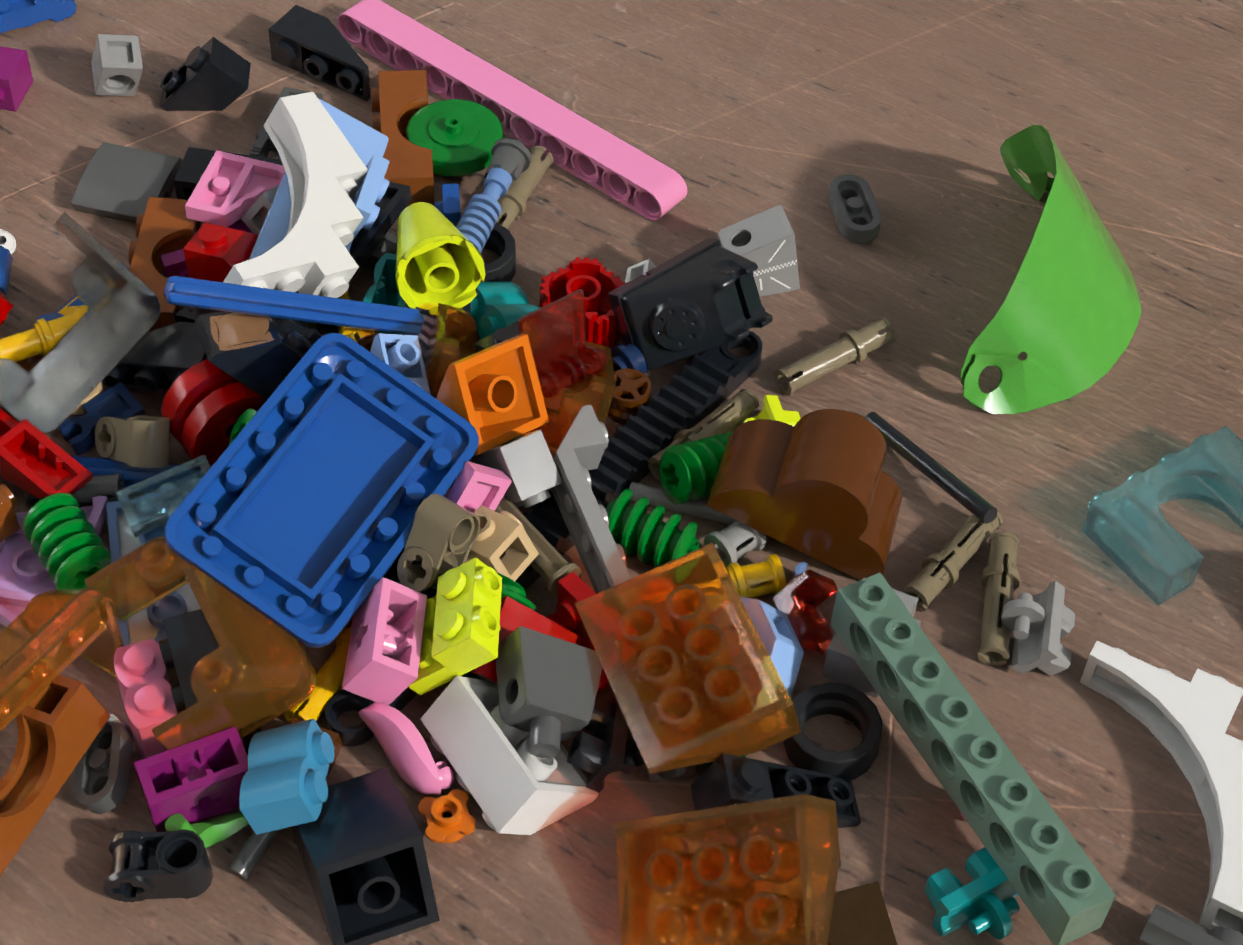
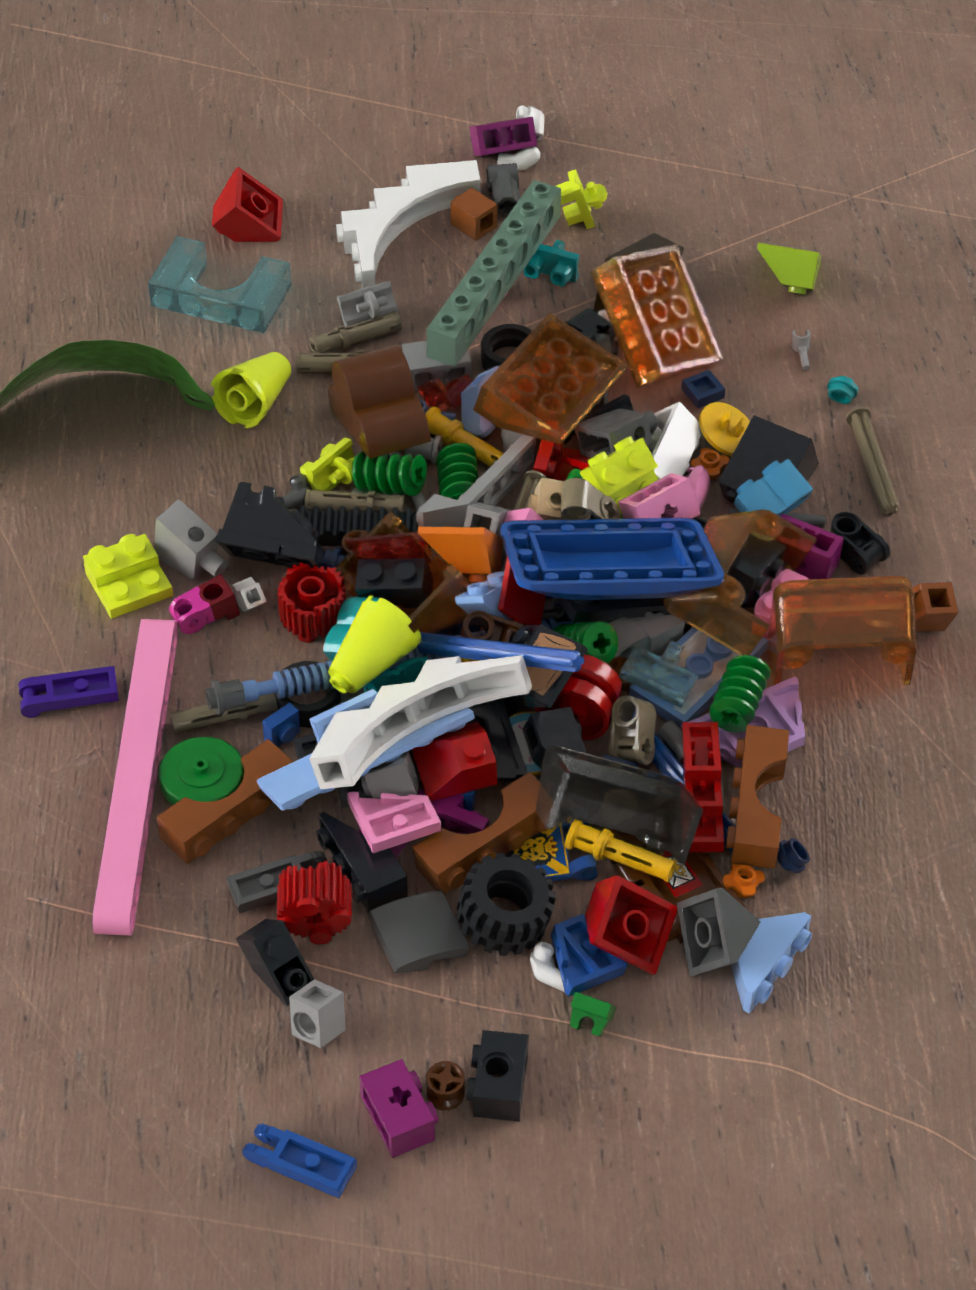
camera: 125 degrees left, 0 degrees up
(47, 251) = (512, 880): none -> black tyre
(219, 111) = (314, 901): none -> red brick
(318, 50) = (174, 915): black slope -> none
(478, 869) = (723, 426): none -> yellow piece
(579, 903) = (703, 389): none -> dark blue plate
(652, 110) = (67, 690): none -> dark purple plate
(663, 235) = (204, 605): none -> leg
(761, 385) = (297, 493): none -> dark grey arm
(792, 193) = (127, 575): none -> neon yellow plate
(849, 348) = (218, 476): dark tan pin -> none
(854, 208) = (77, 536): dark grey plate -> none
(934, 470) = (288, 397): black bar -> none
(964, 432) = (250, 388): none -> neon yellow cone
(1155, 868) = (473, 214): none -> dark orange brick

